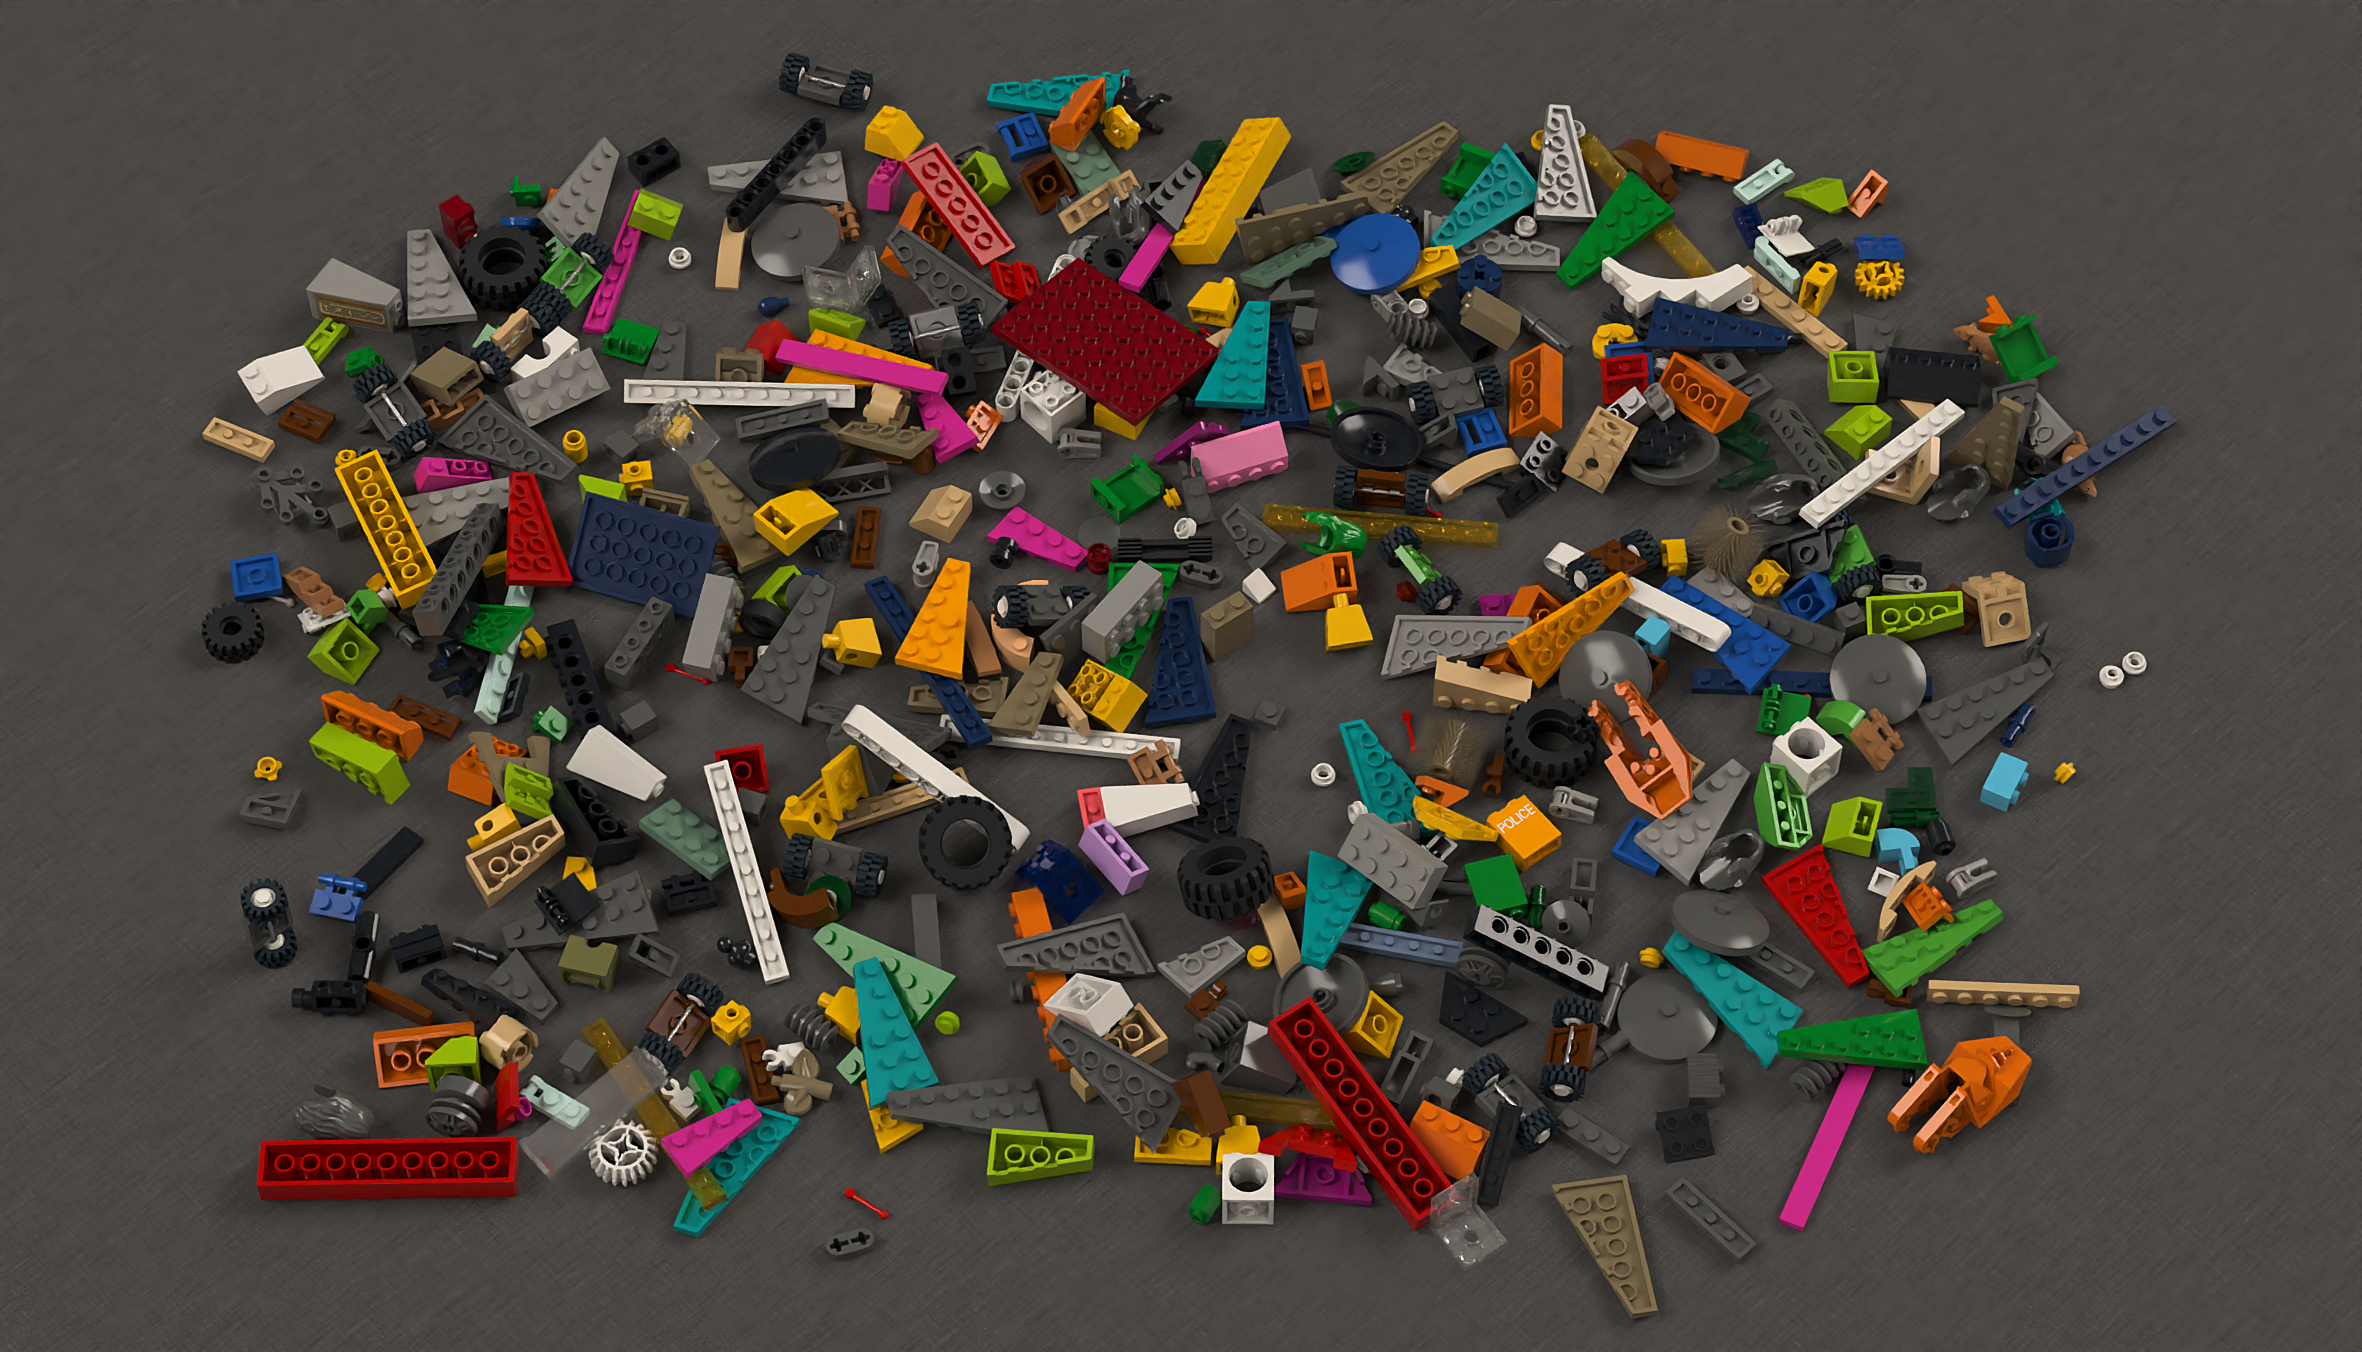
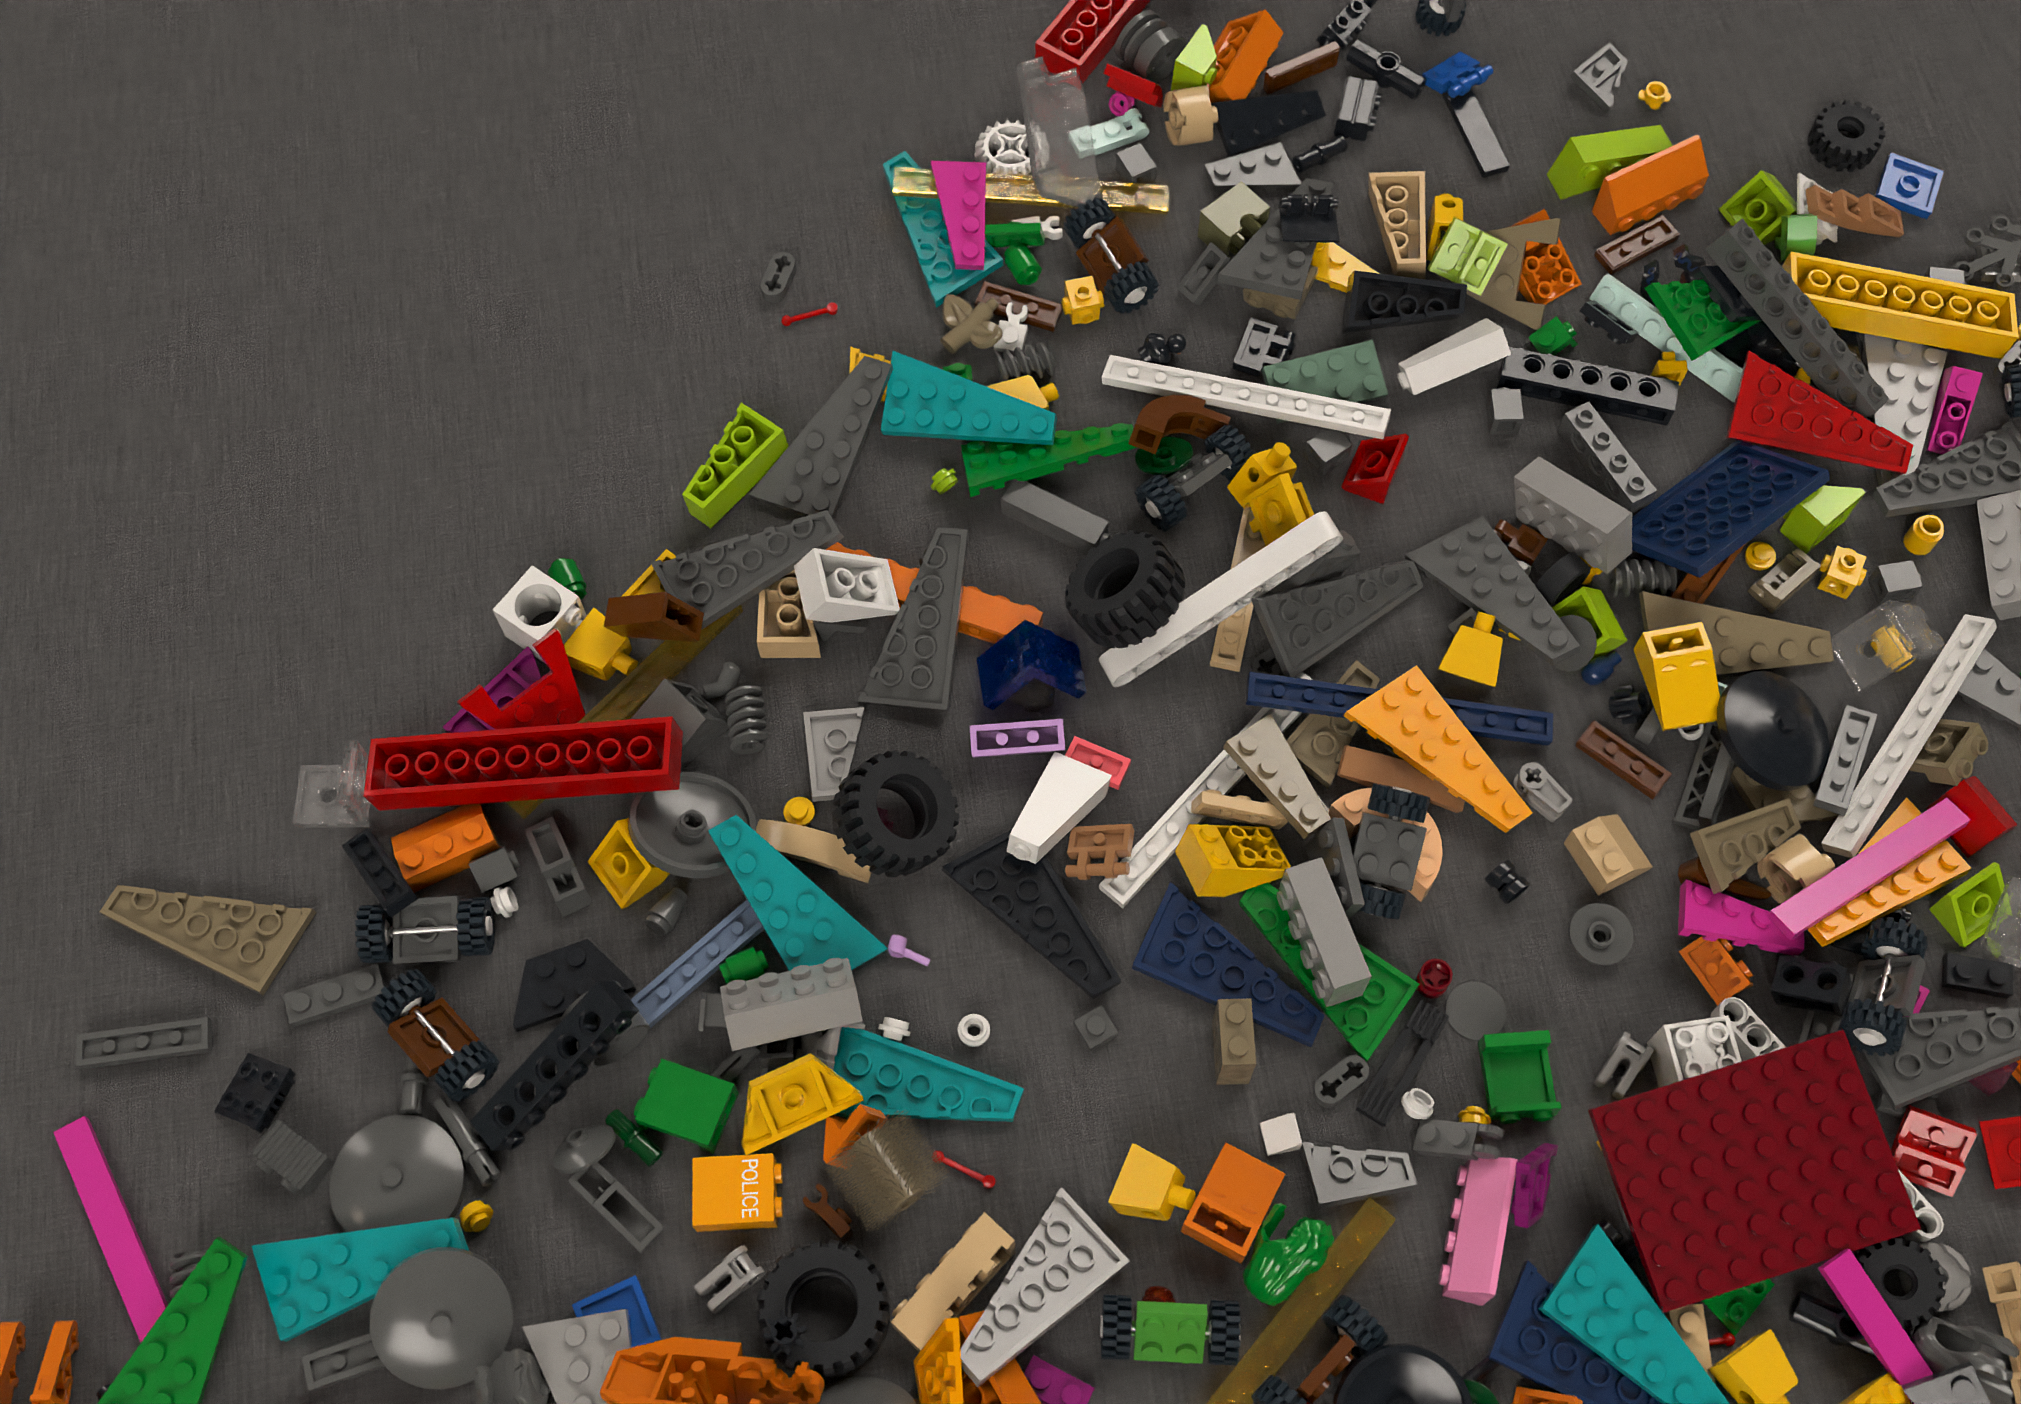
camera: 125 degrees right, 10 degrees up
(1039, 540) = (1514, 931): dark pink wing -> none
(1205, 1002) = (786, 726): reddish brown plate -> none
(1290, 891) = (852, 886): orange slope -> none
(1303, 847) = (898, 949): none -> lavender hand

